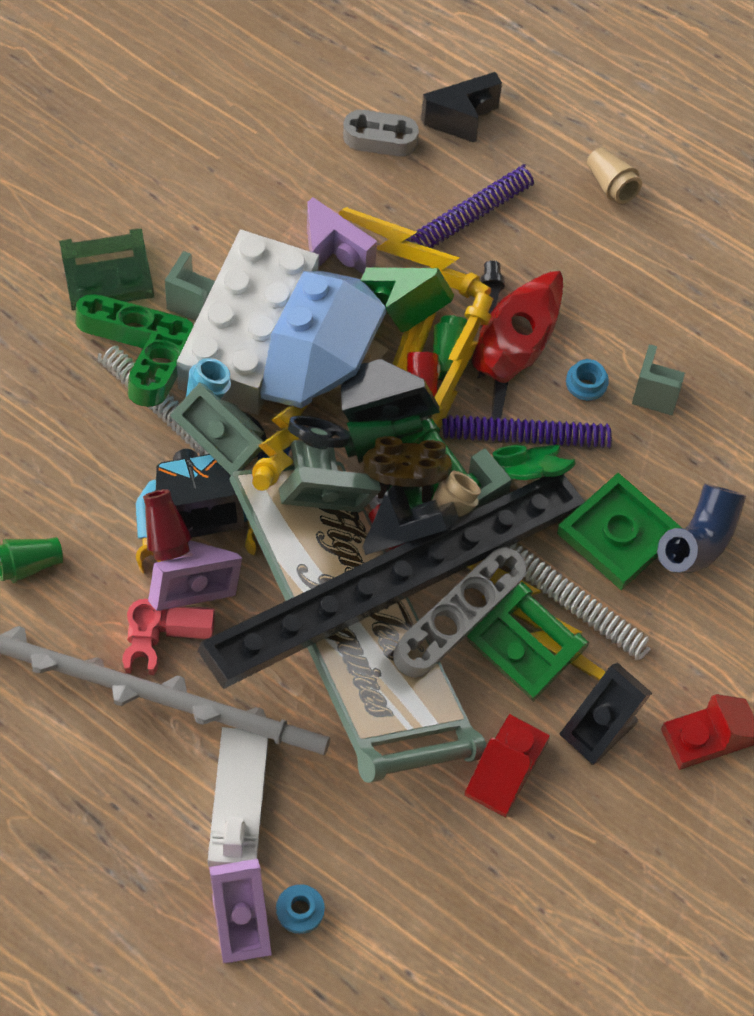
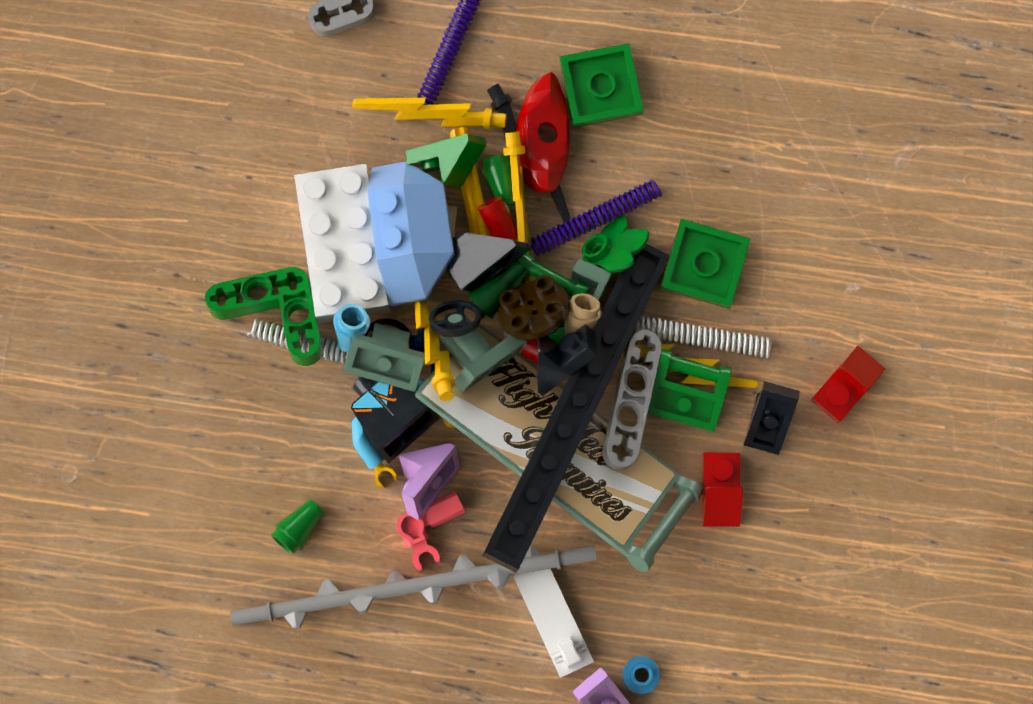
camera: 25 degrees left, 20 degrees up
(118, 279) = (211, 265): clear green plate -> none
(164, 527) = (395, 463): dark red cone -> none
(186, 289) = (283, 240): sand green panel -> none
(335, 235) = (356, 130): lavender slope -> none
(587, 370) = (616, 138): dark azure plate -> none
(605, 315) = (601, 85): none -> green plate
(657, 385) = (670, 124): sand green panel -> none
(706, 534) = (767, 233): dark blue cylinder -> none

